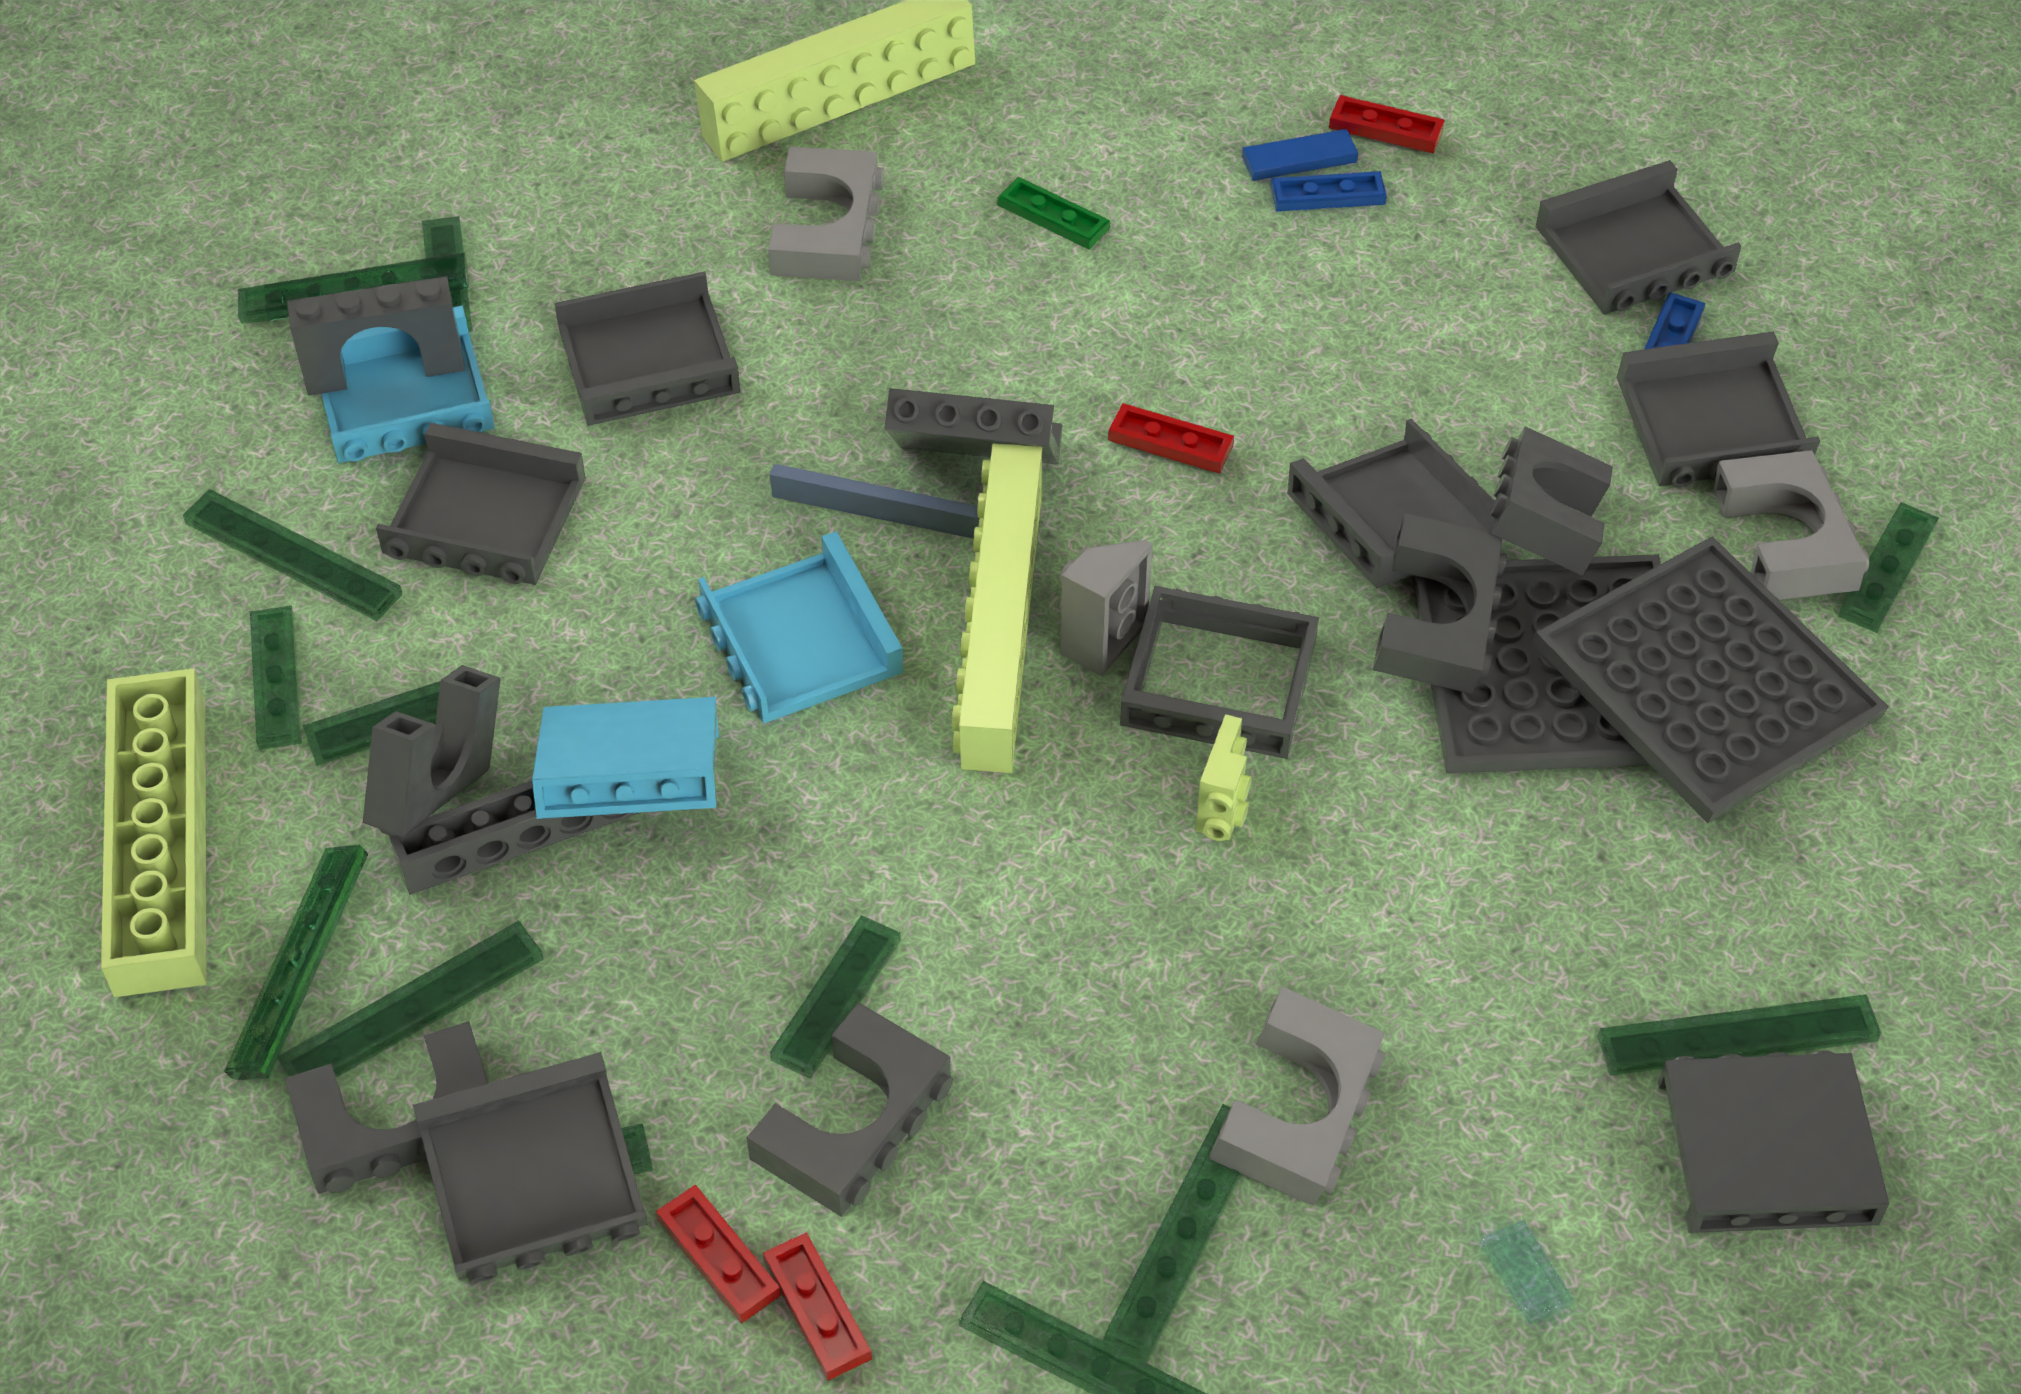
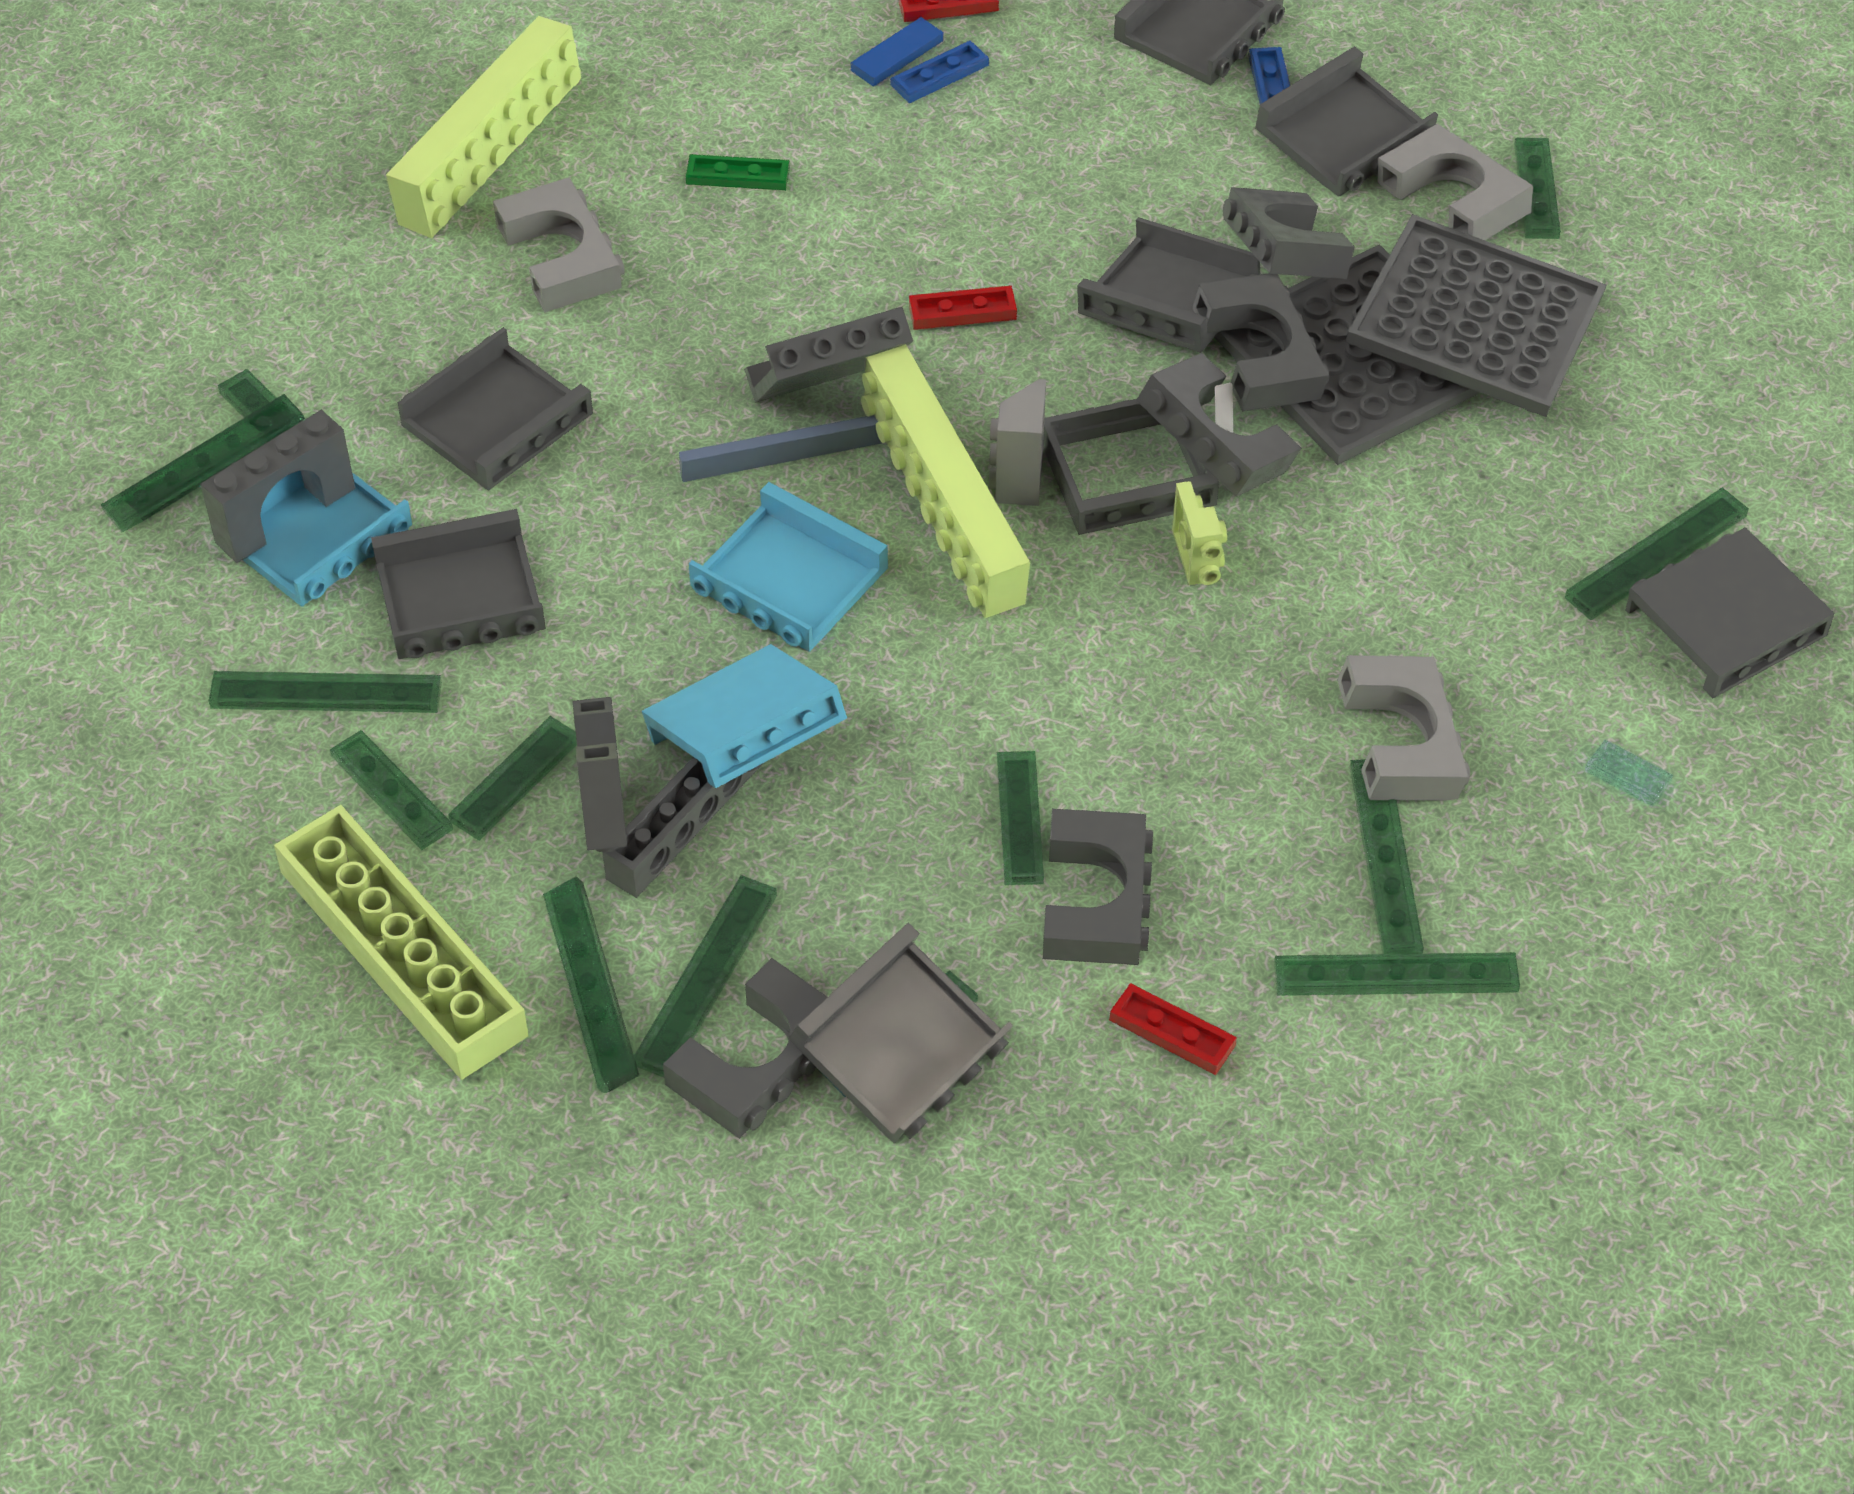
camera: 30 degrees left, 0 degrees up
(718, 1253) = (1075, 1029): red plate -> none
(1318, 717) = (1236, 460): none -> dark grey arch
(1353, 662) = (1224, 406): none -> white sticker

